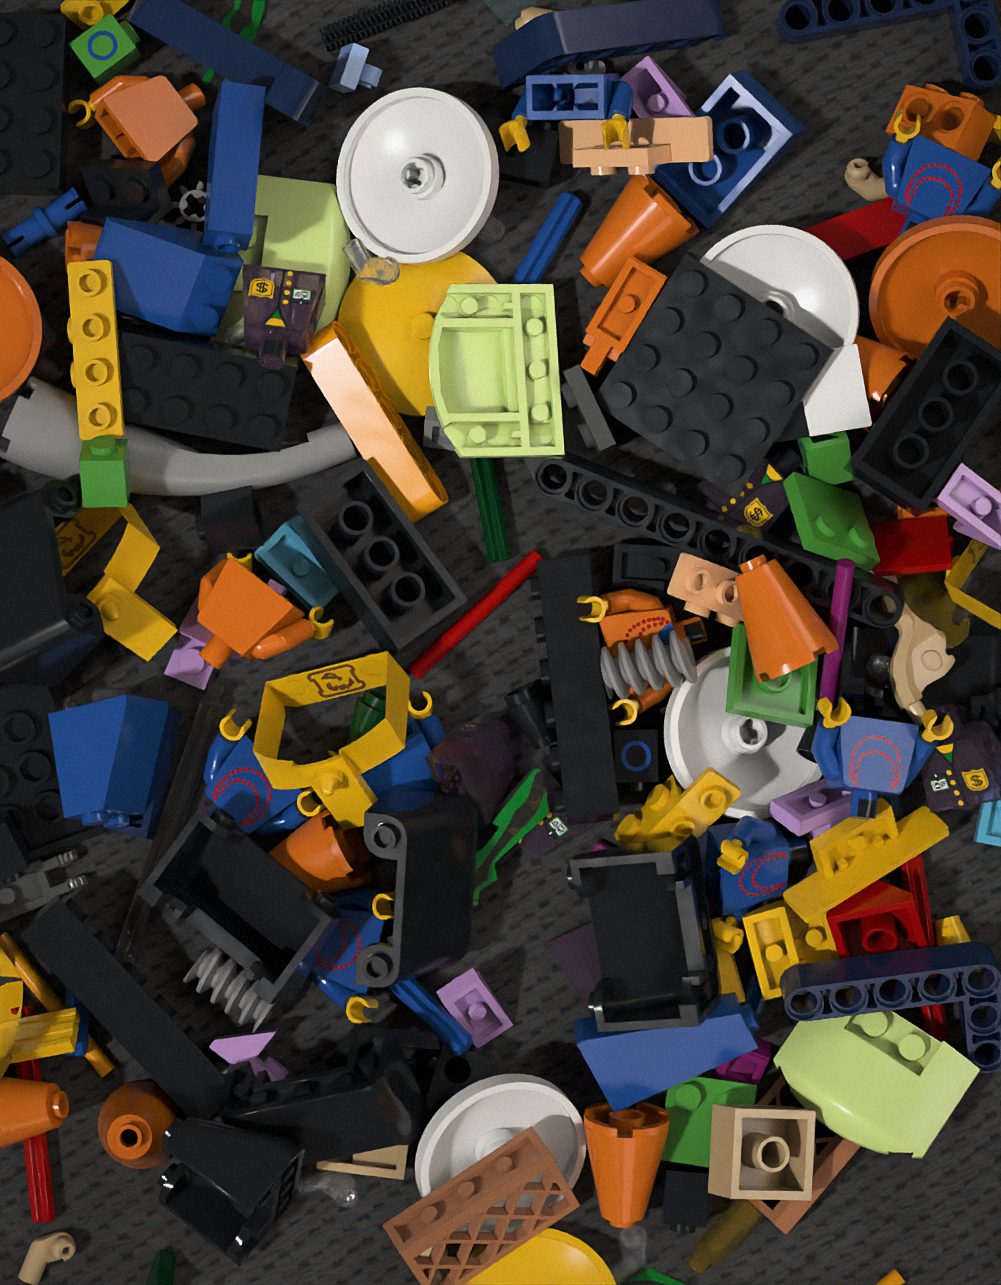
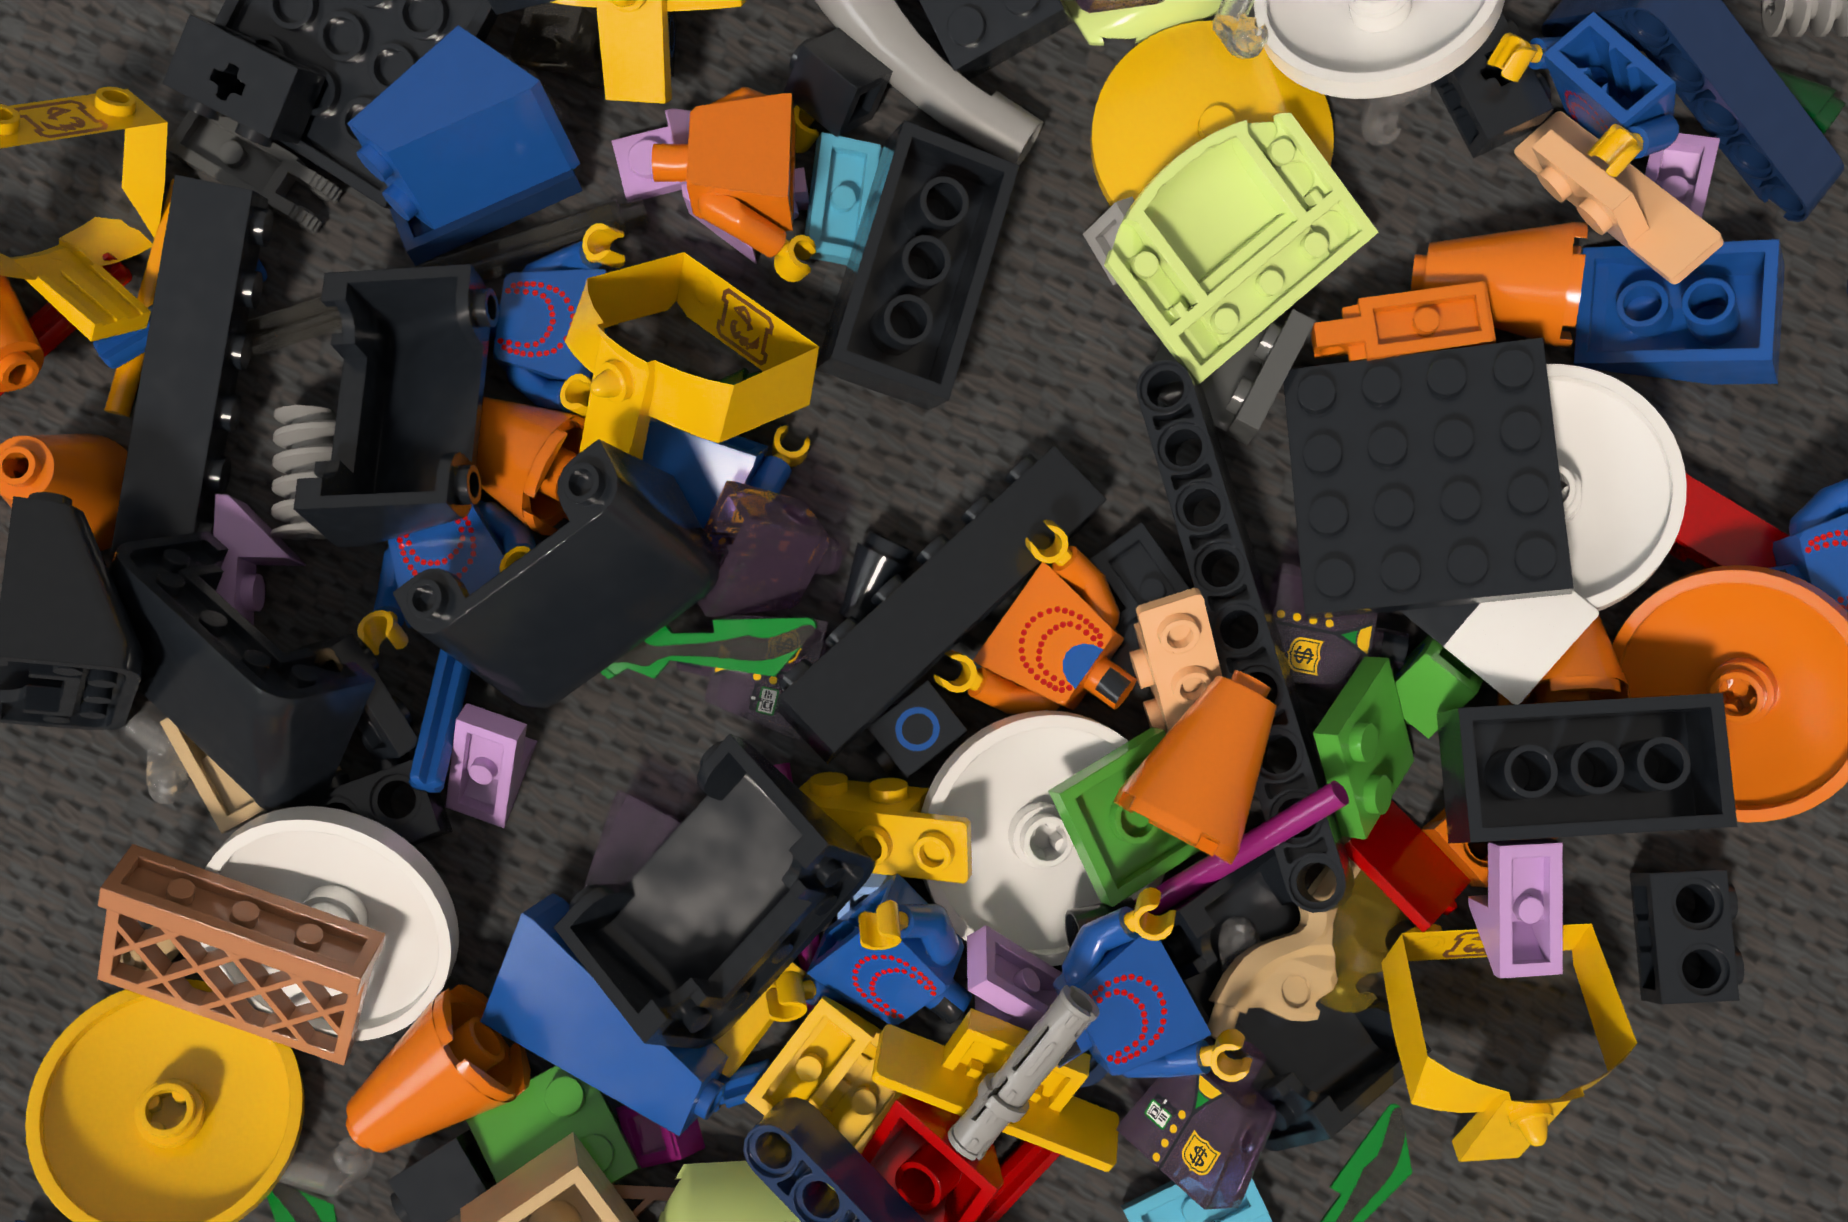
camera: 50 degrees right, 5 degrees down
(373, 421) = (1067, 152): light orange beam -> none
(475, 615) = (934, 431): red bar -> none
(490, 509) = (1074, 356): dark green axle -> none
(548, 240) = (1425, 197): blue axle -> none
(648, 666) = (1032, 658): light grey piece -> none
(865, 181) = (1769, 494): tan arm -> none
(867, 857) = (1006, 1093): none -> light grey pin

